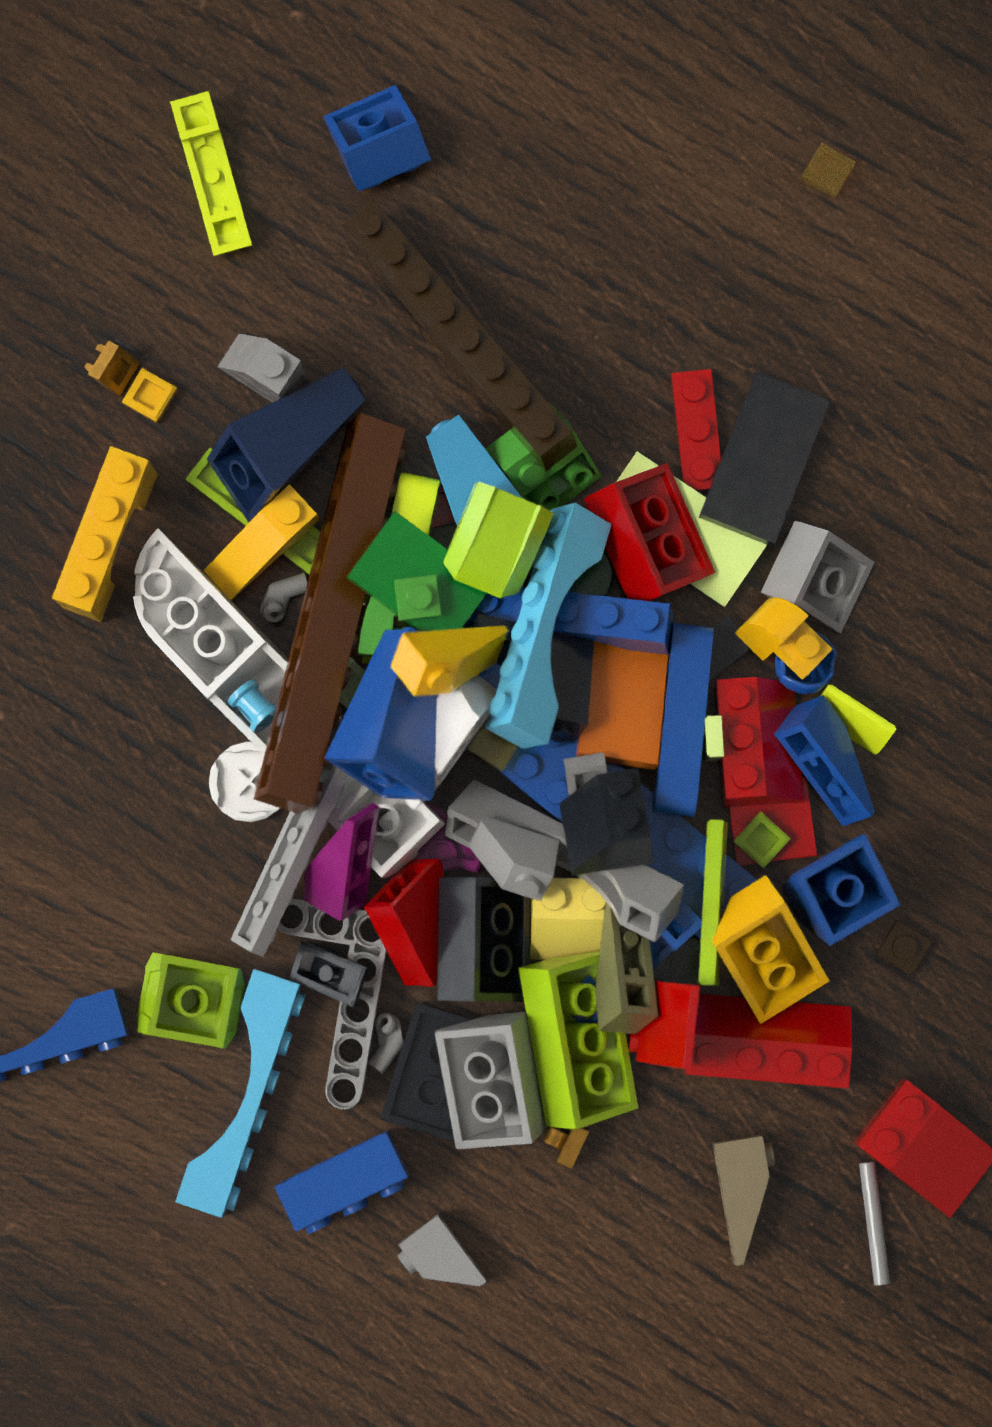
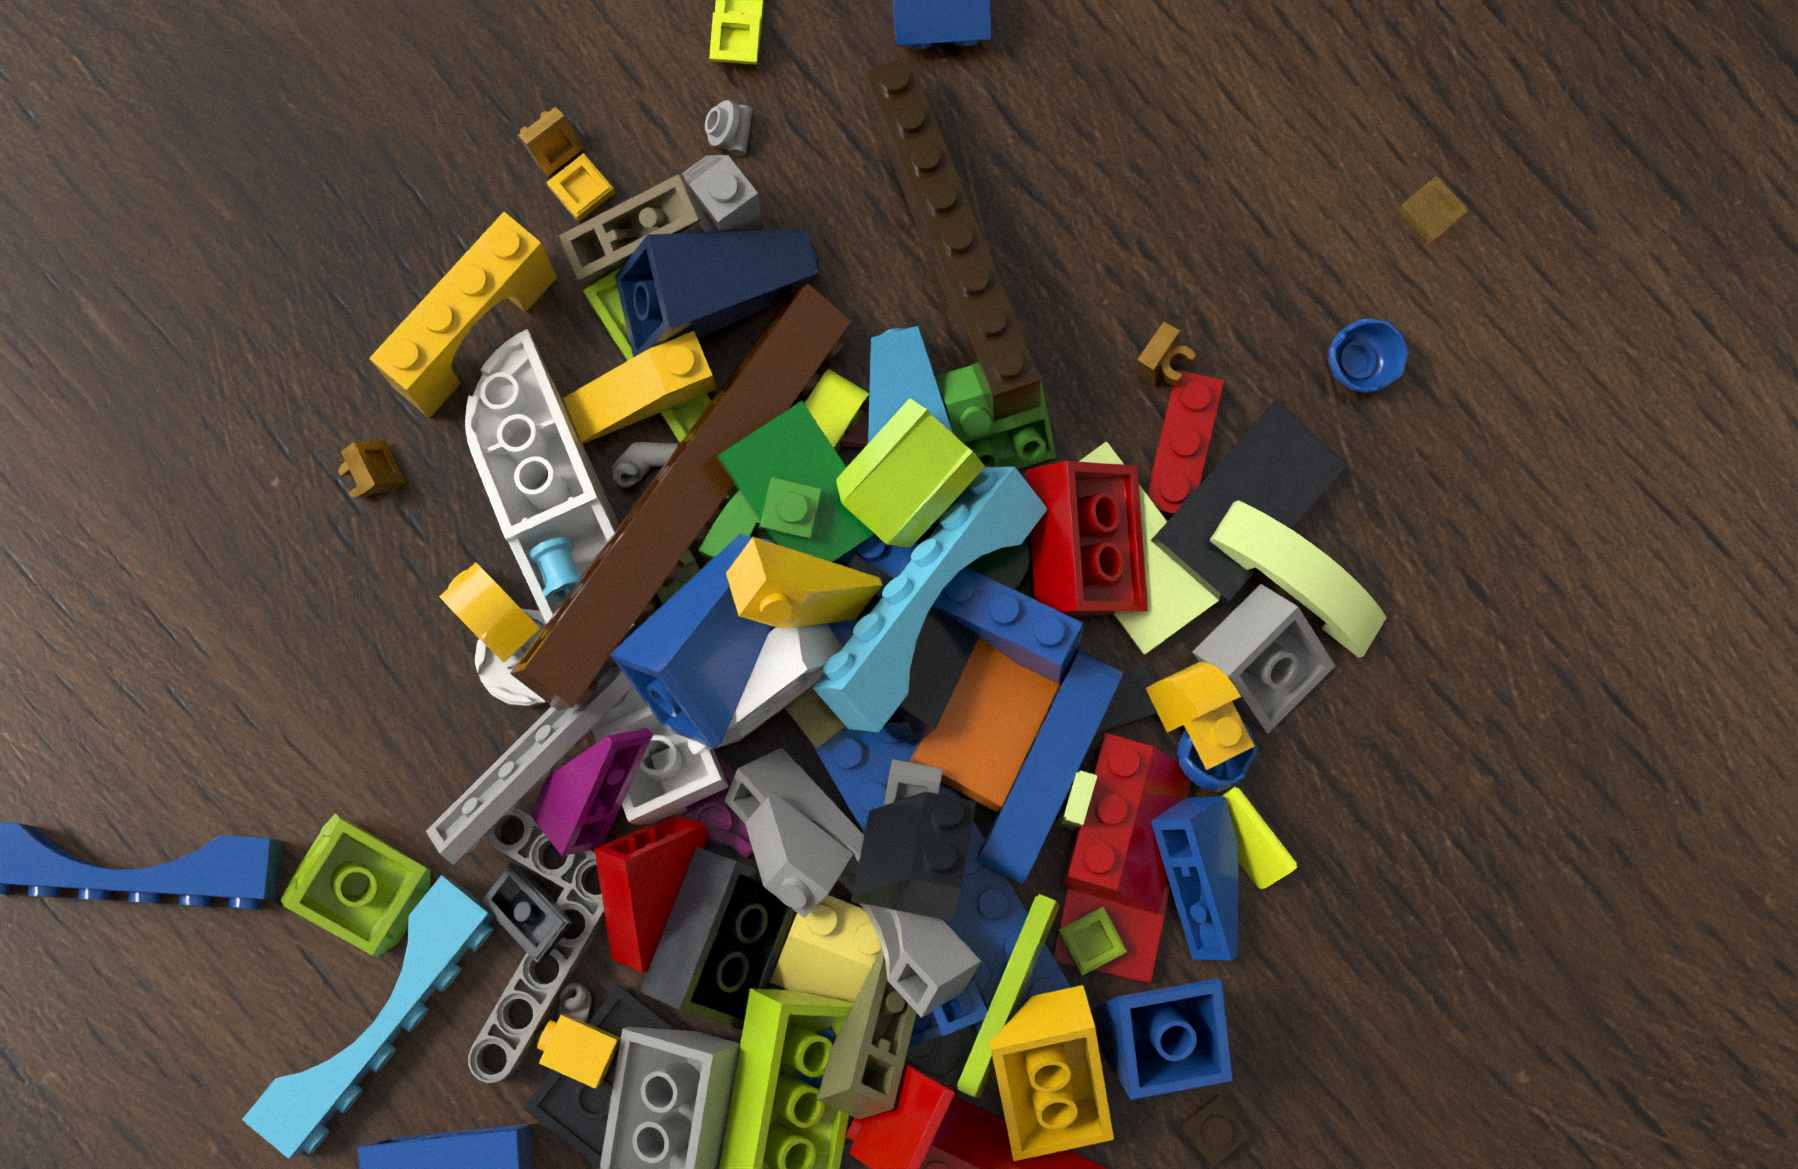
camera: 15 degrees right, 5 degrees down
(75, 678) = (371, 468): none -> pearl gold tile
(208, 420) = (612, 237): none -> dark tan slope
(211, 757) = (489, 612): none -> yellow brick
(248, 304) = (729, 127): none -> light grey plate
(406, 1059) = (578, 1049): none -> yellow brick
(655, 365) = (1161, 353): none -> pearl gold tile
(816, 310) = (1368, 355): none -> blue hair
(824, 501) = (1303, 572): none -> yellowish green slope

